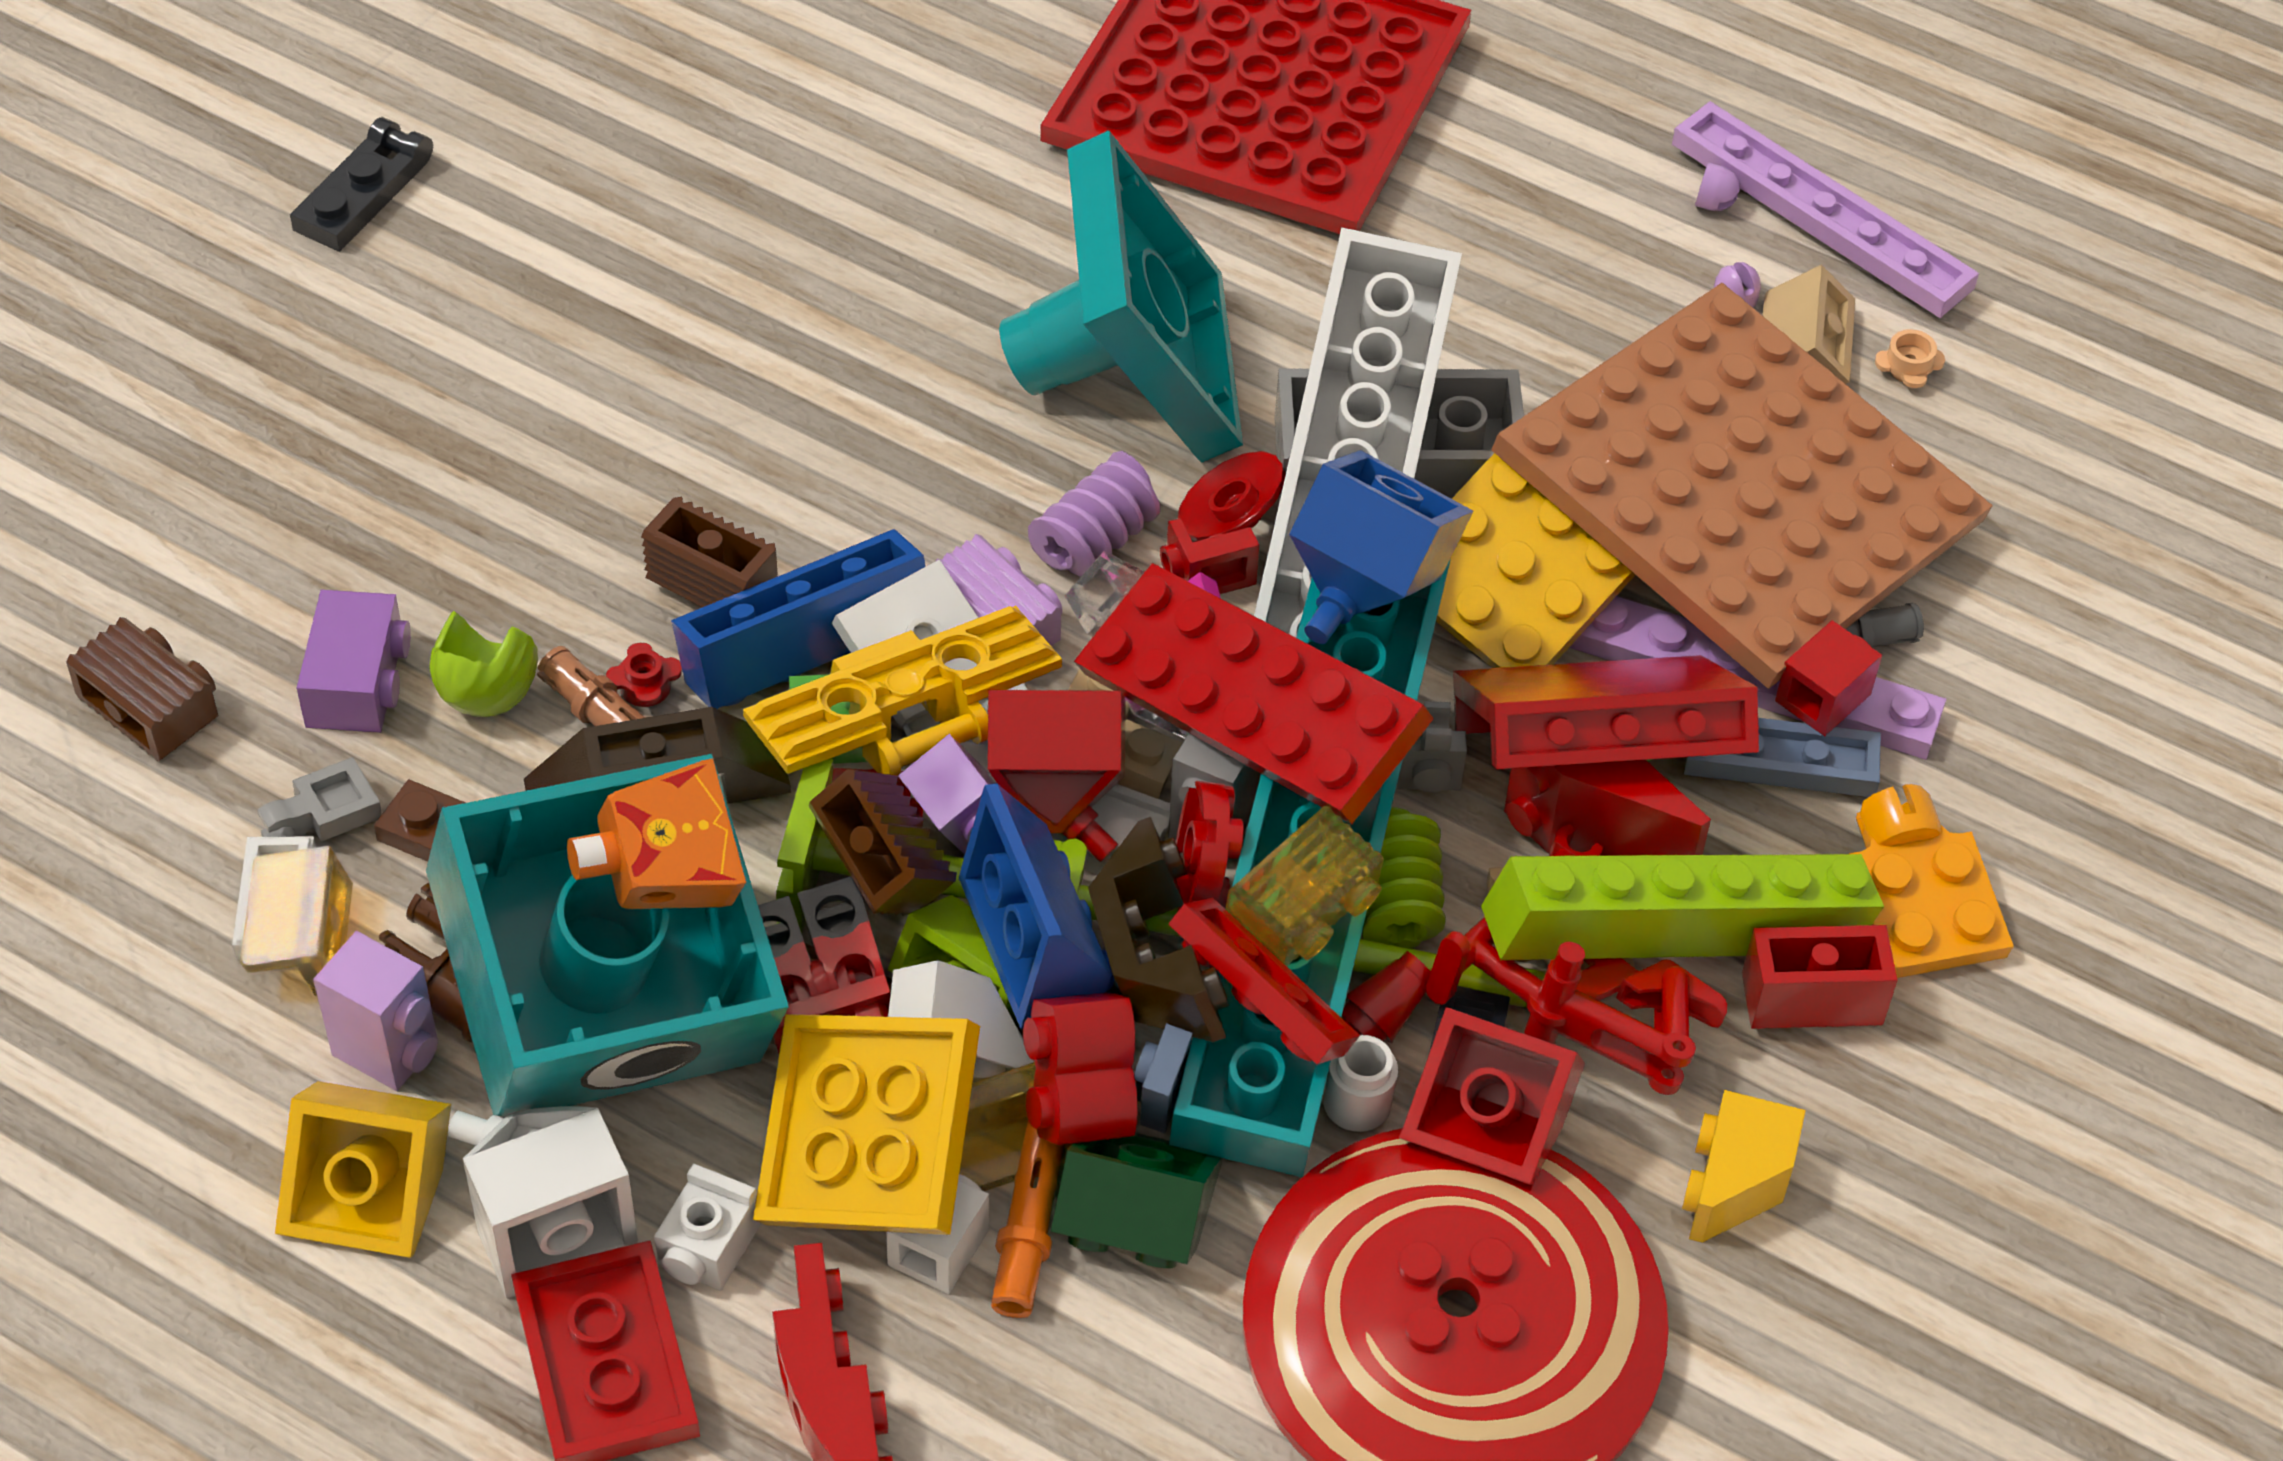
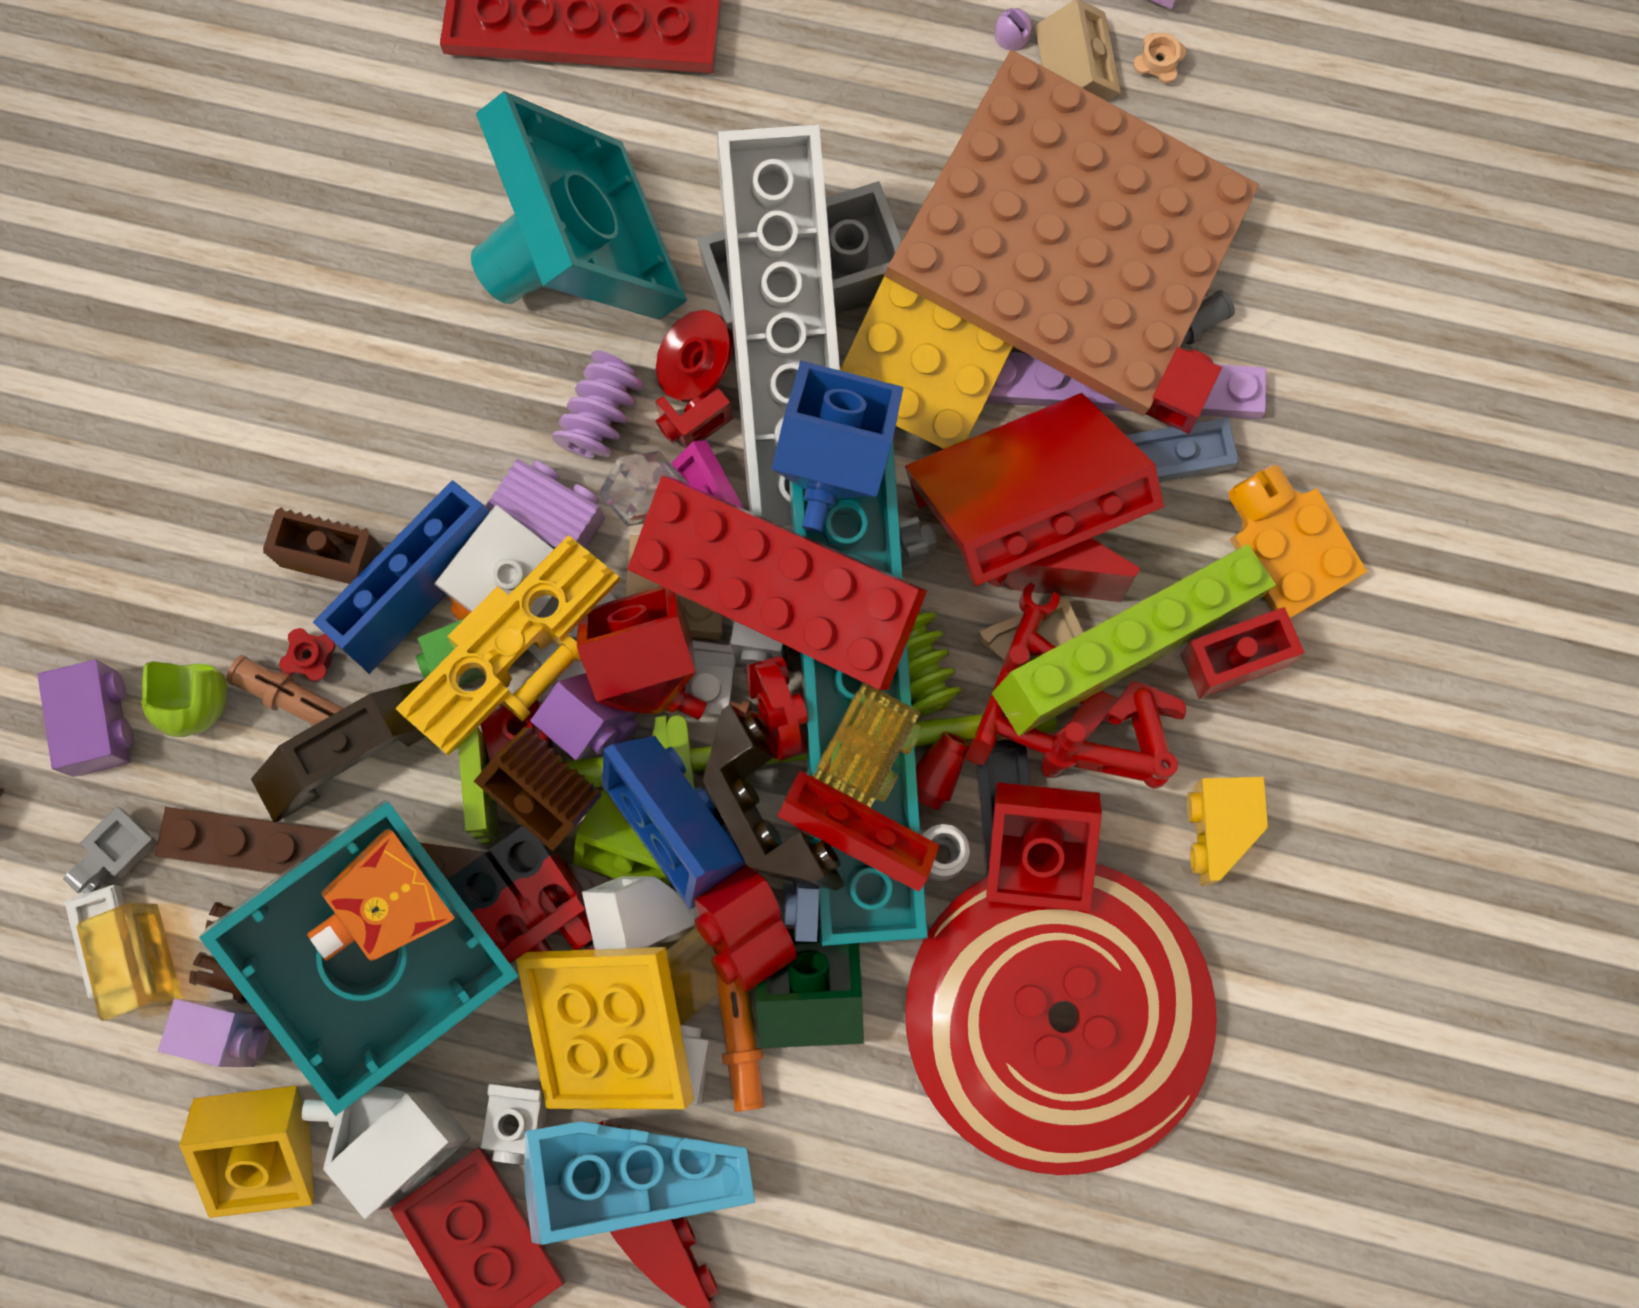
camera: 10 degrees left, 25 degrees up
(812, 1294) = (612, 1178): none -> medium azure wedge

